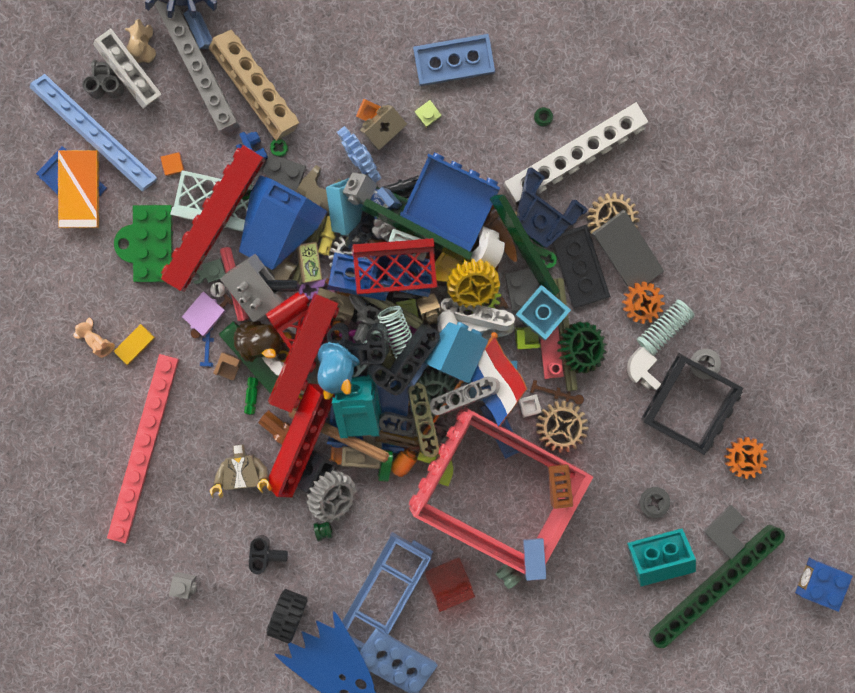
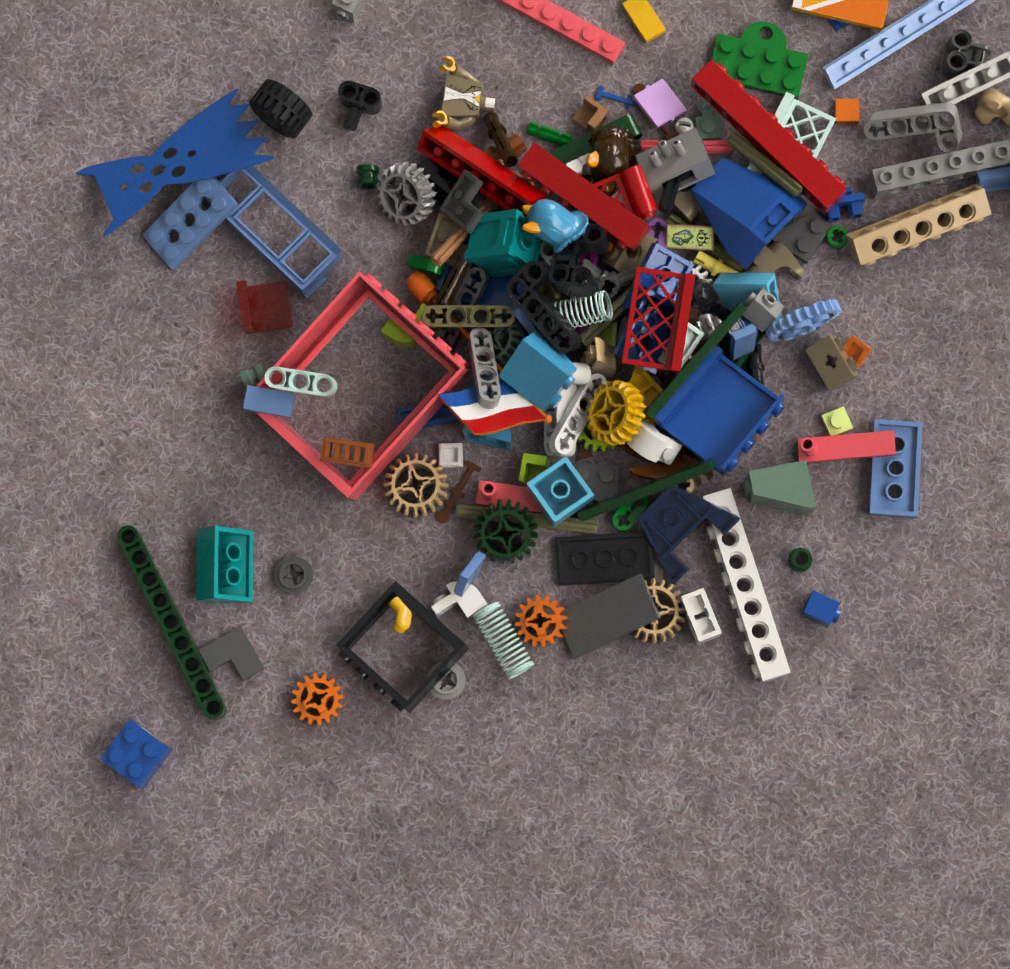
camera: 115 degrees right, 10 degrees down
(182, 135) = (913, 126): none -> light grey beam
(237, 216) = (764, 164): none -> olive axle
(262, 436) = (497, 133): none -> dark brown pin
(331, 452) = (459, 205): none -> dark grey tile
(447, 100) = (847, 446): none -> coral piece
(494, 142) = (781, 488): none -> sand green slope
(519, 546) = (289, 381): none -> light aqua beam
(578, 91) = (821, 609): none -> blue brick
(609, 181) = (700, 616): none -> white brick
(625, 366) = (469, 573): none -> medium blue tile
(671, 408) = (403, 616): none -> yellow arm

